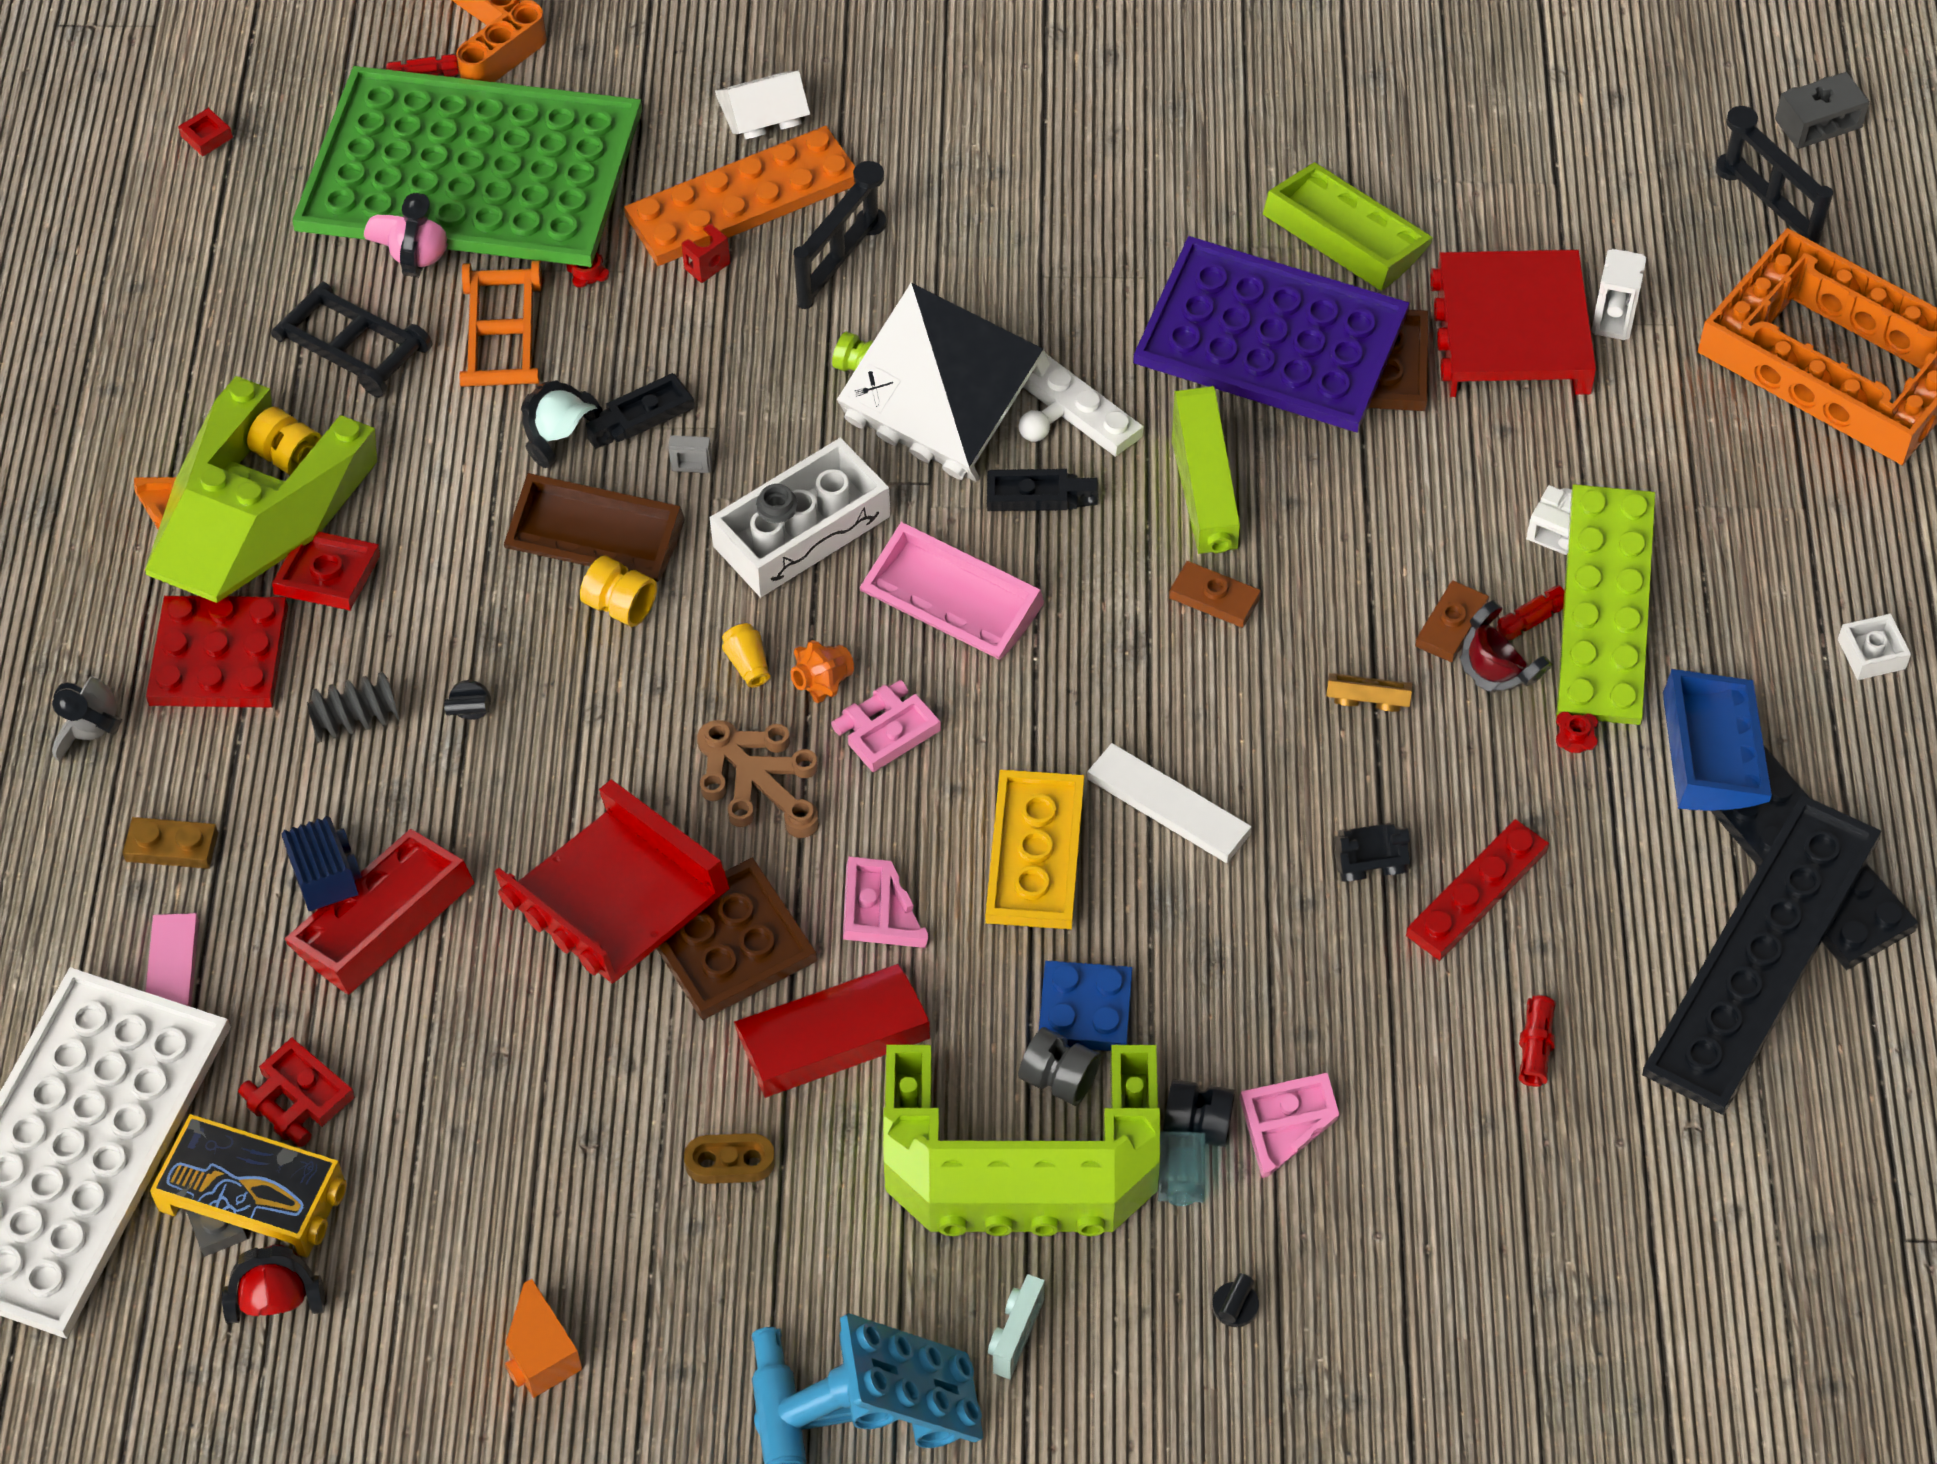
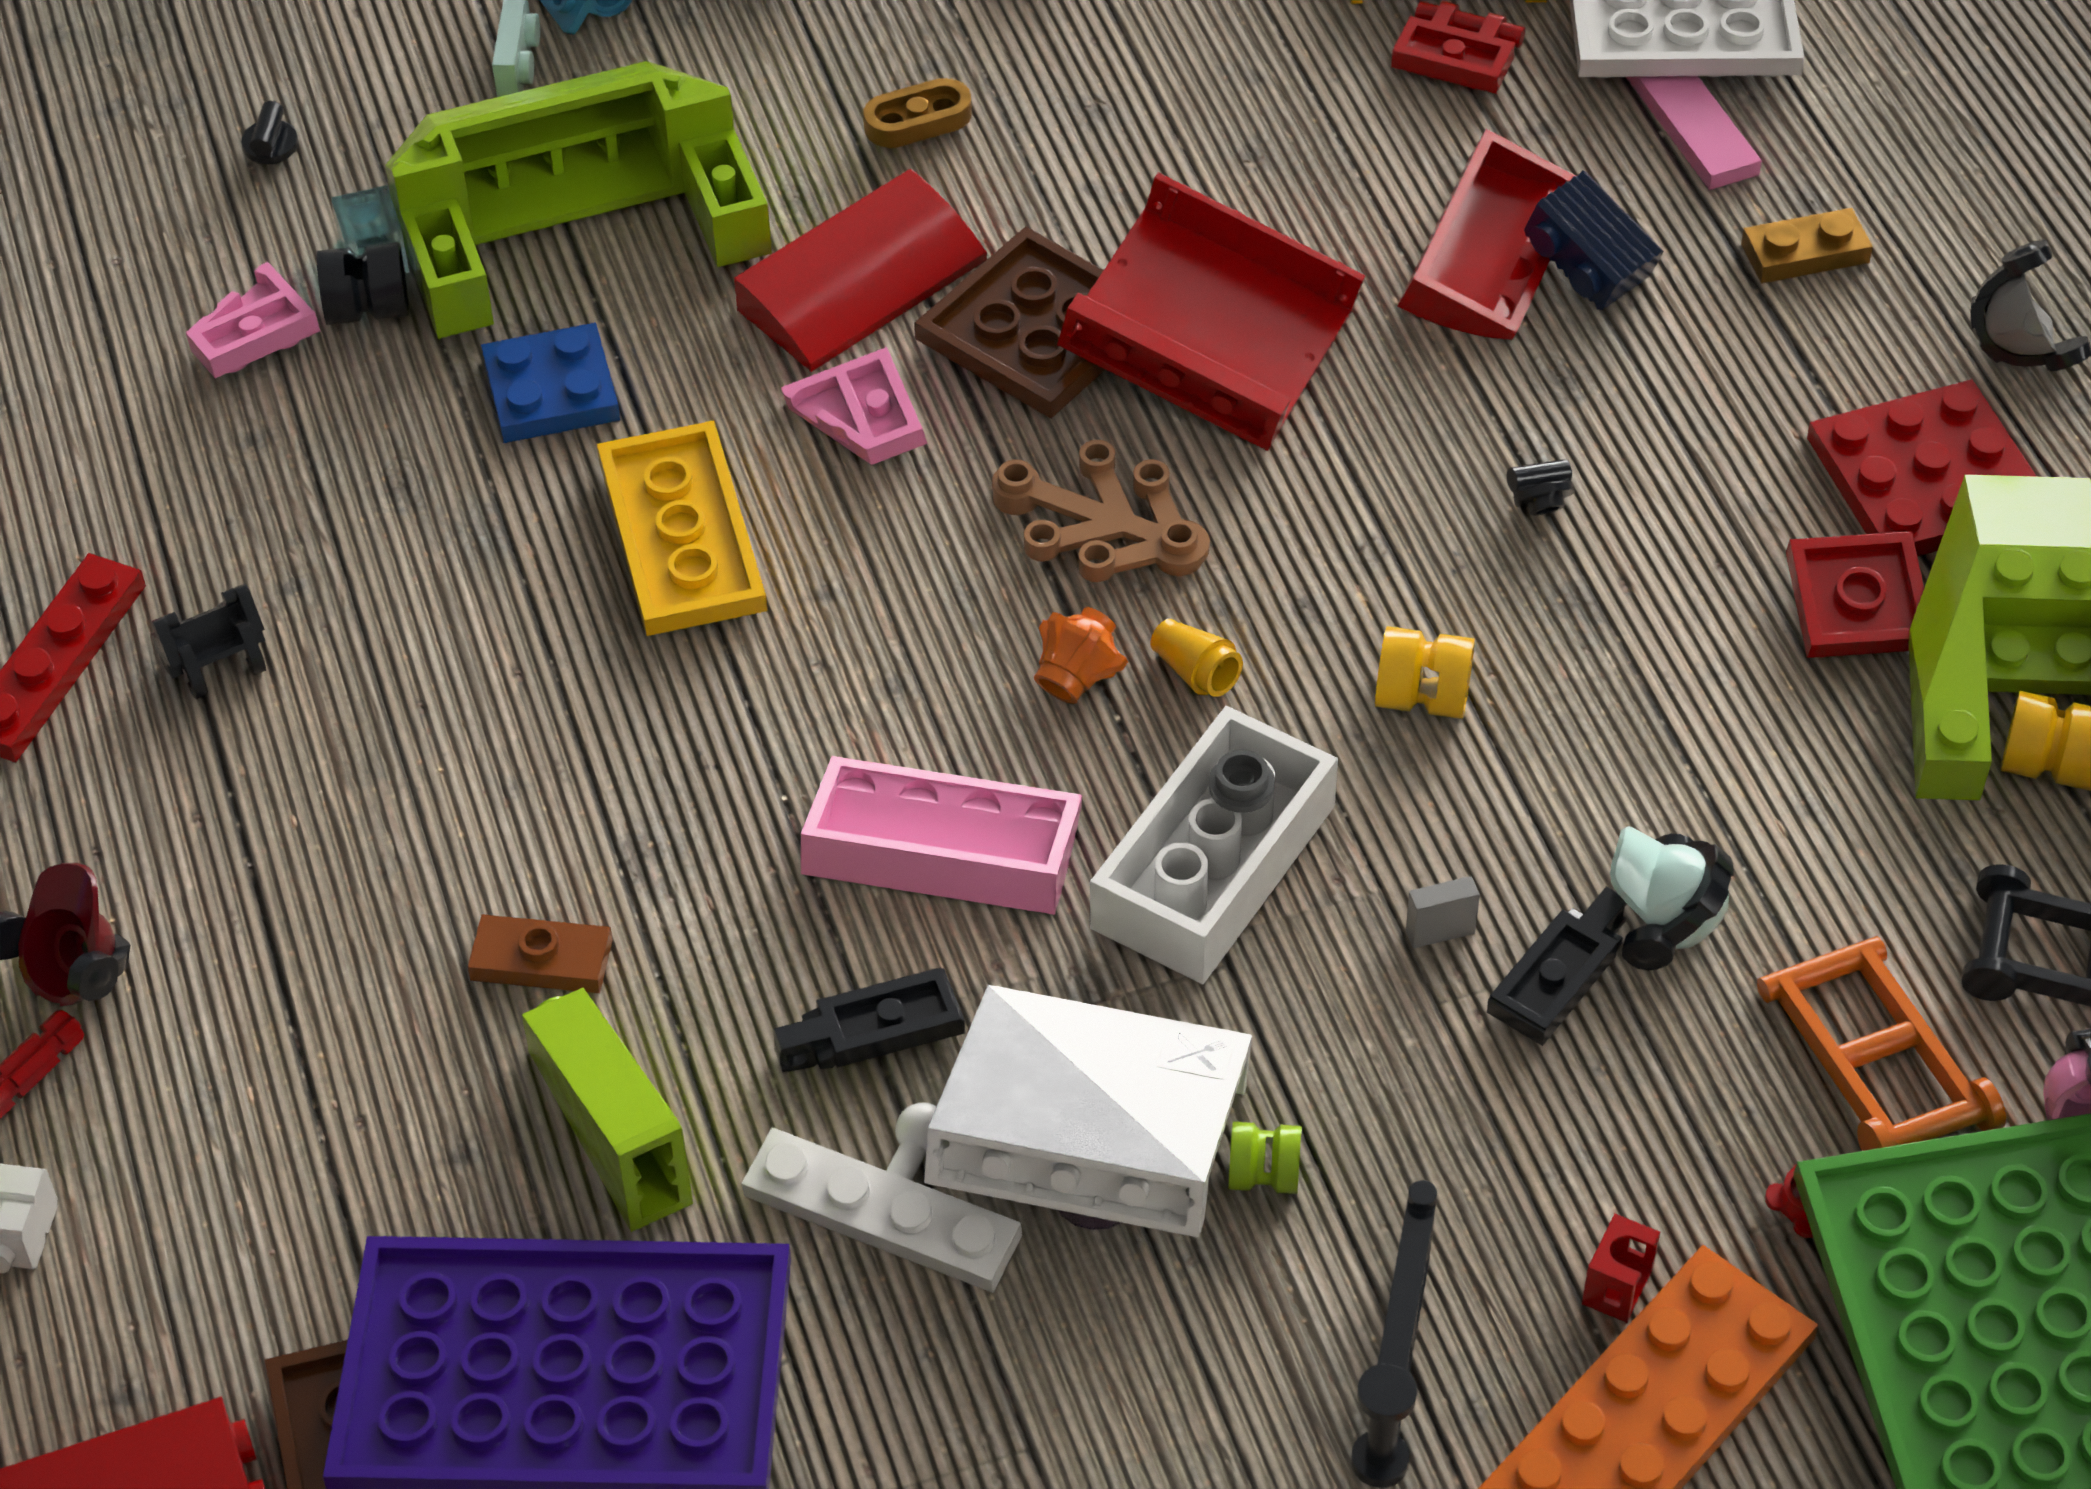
camera: 160 degrees right, 5 degrees down
(351, 706) = (1687, 426): dark grey piece -> none
(588, 522) = (1522, 773): reddish brown slope -> none
(893, 732) = (939, 613): bright pink plate -> none
(1057, 1065) = (553, 284): dark grey wheel -> none
(1169, 803) = (518, 644): white tile -> none
(1387, 694) = (260, 858): pearl gold plate -> none
(1450, 621) = (155, 1019): dark orange plate -> none

